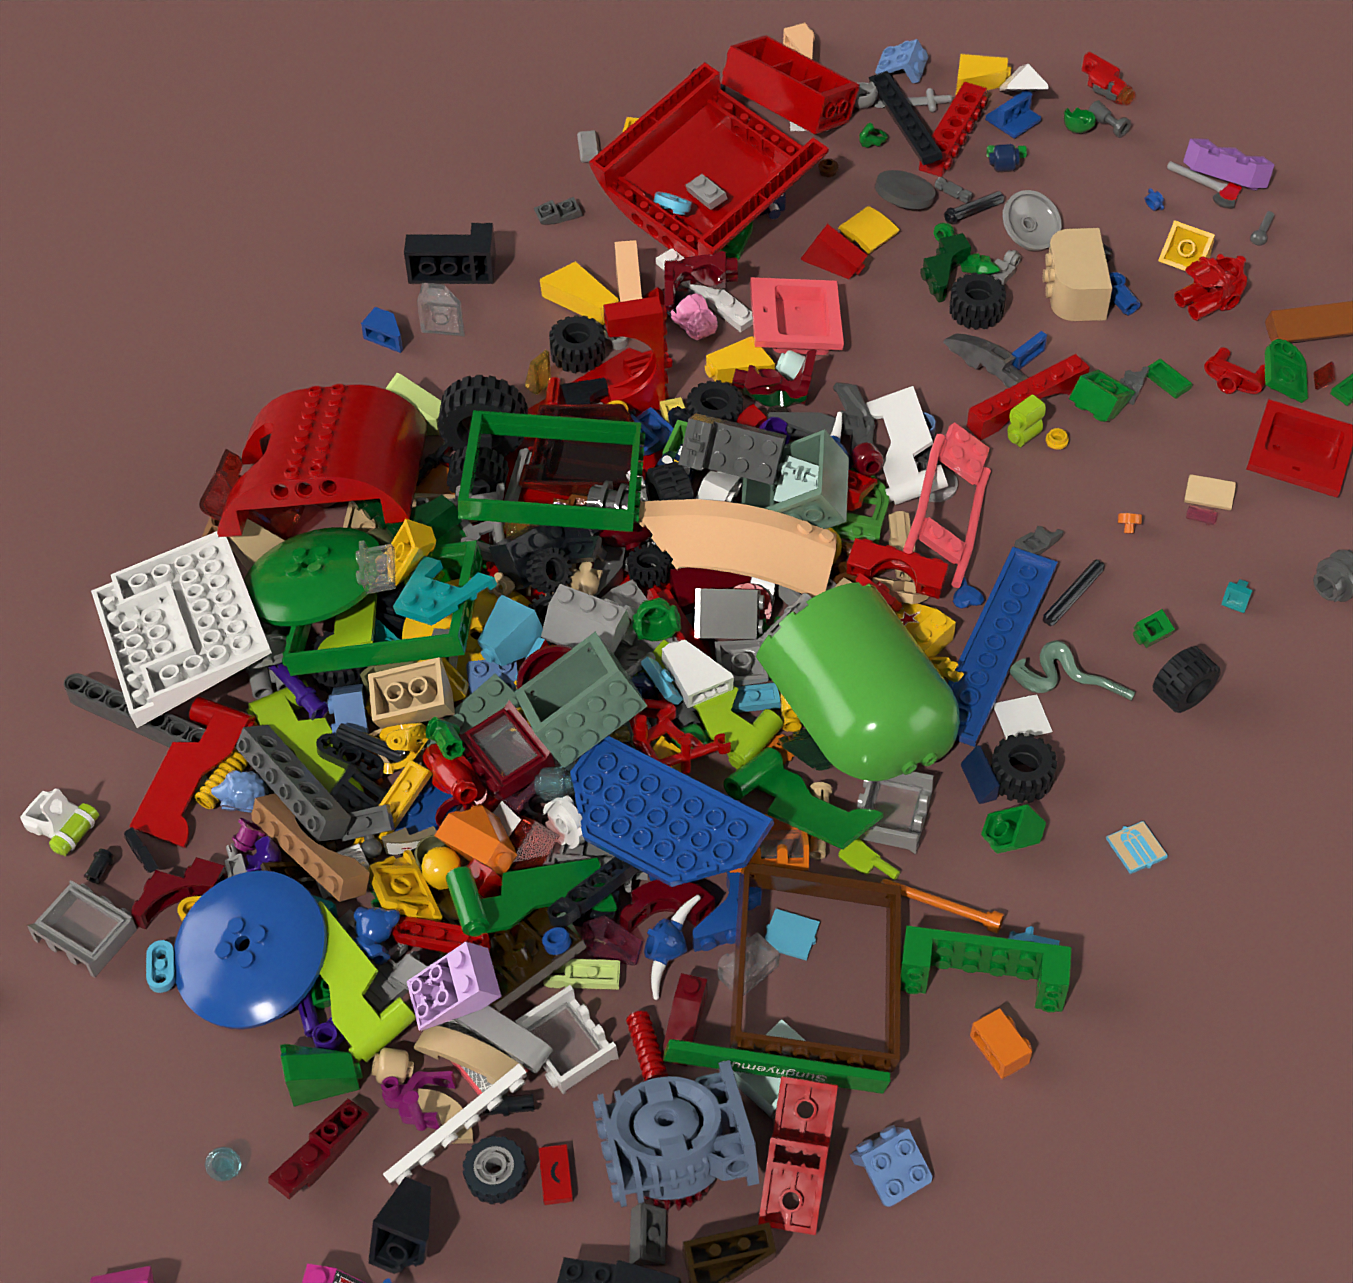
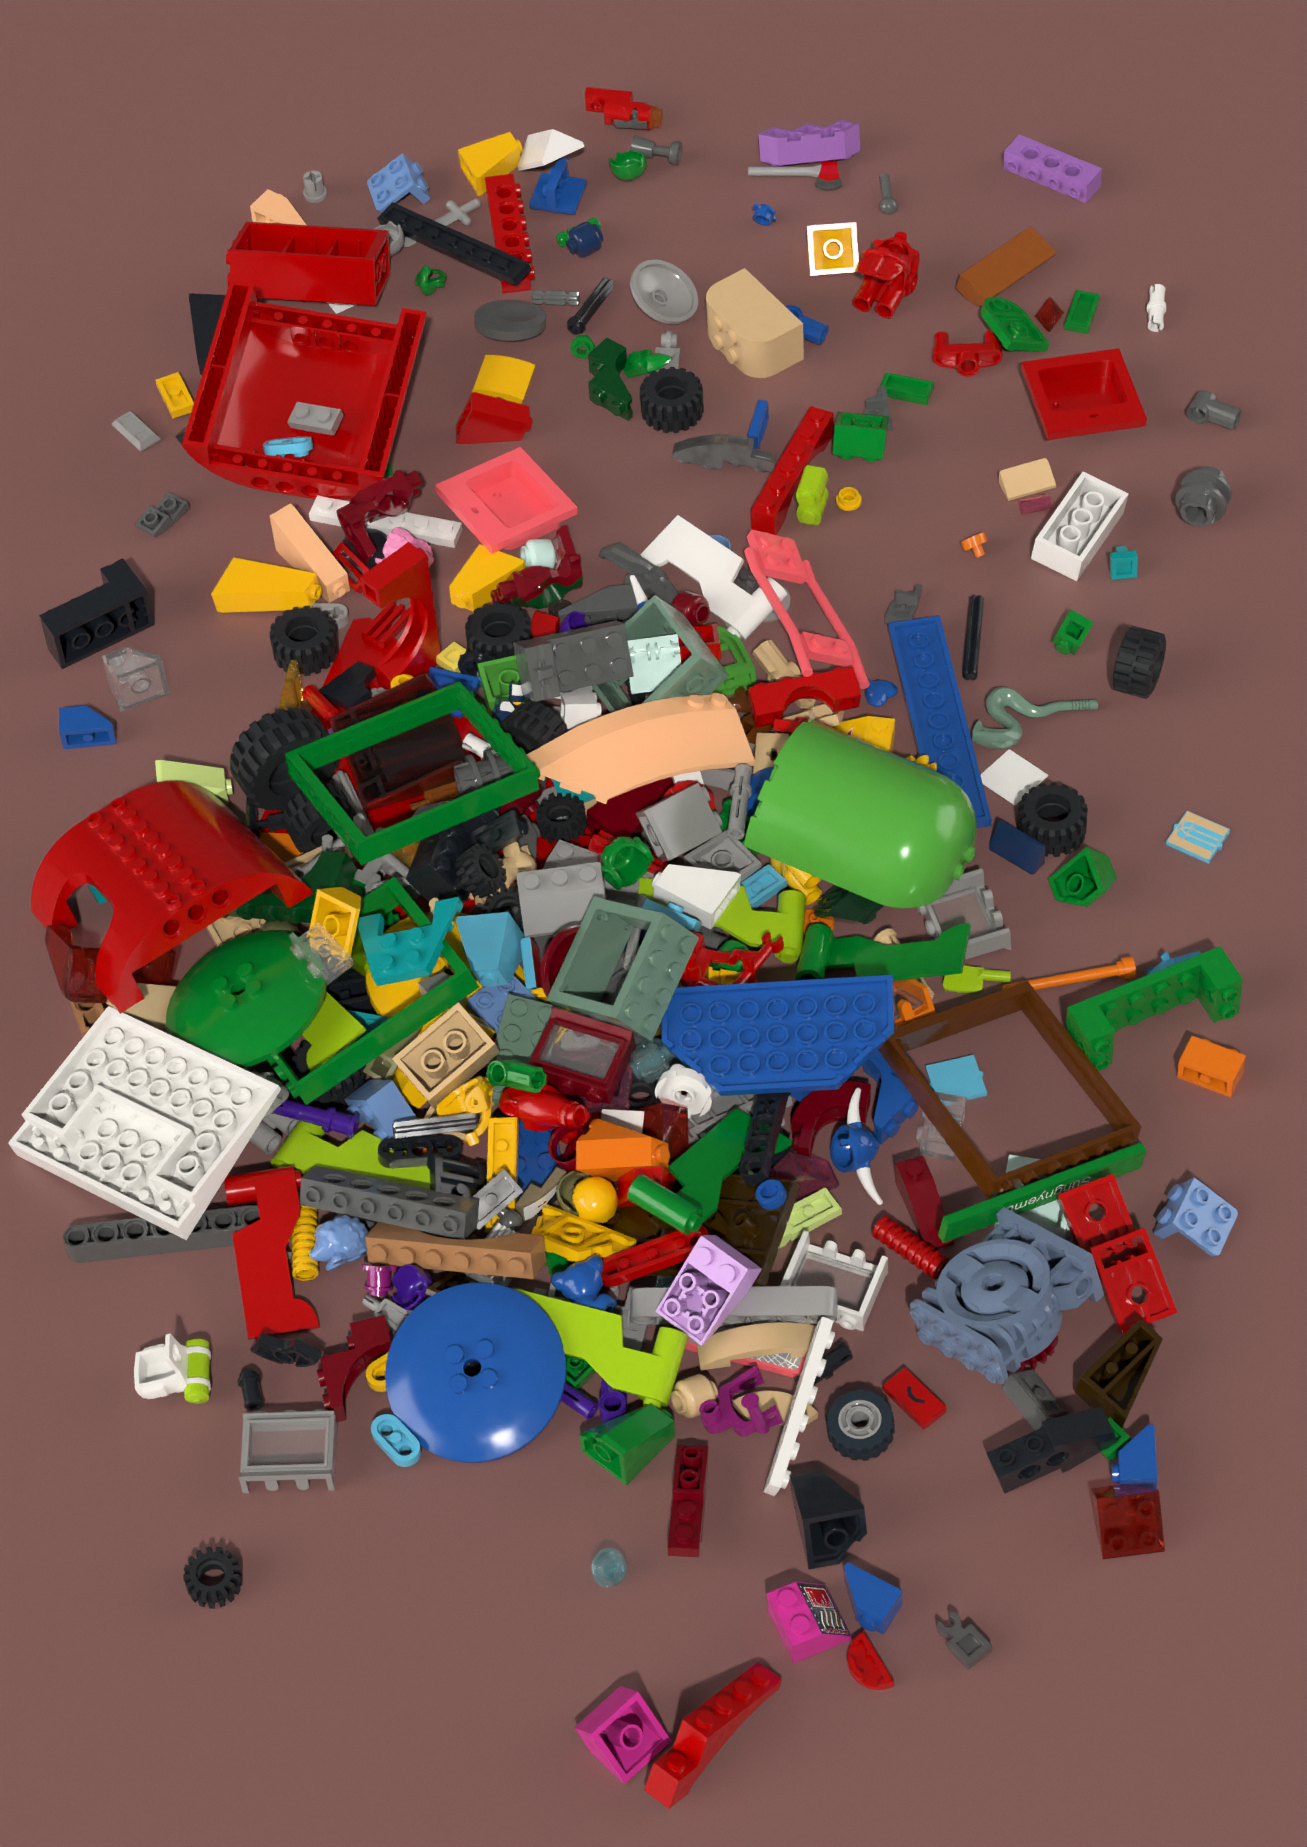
camera: 30 degrees left, 0 degrees up
(842, 37) = (310, 186): none -> light grey bush
(1222, 548) = (1079, 526): none -> white brick

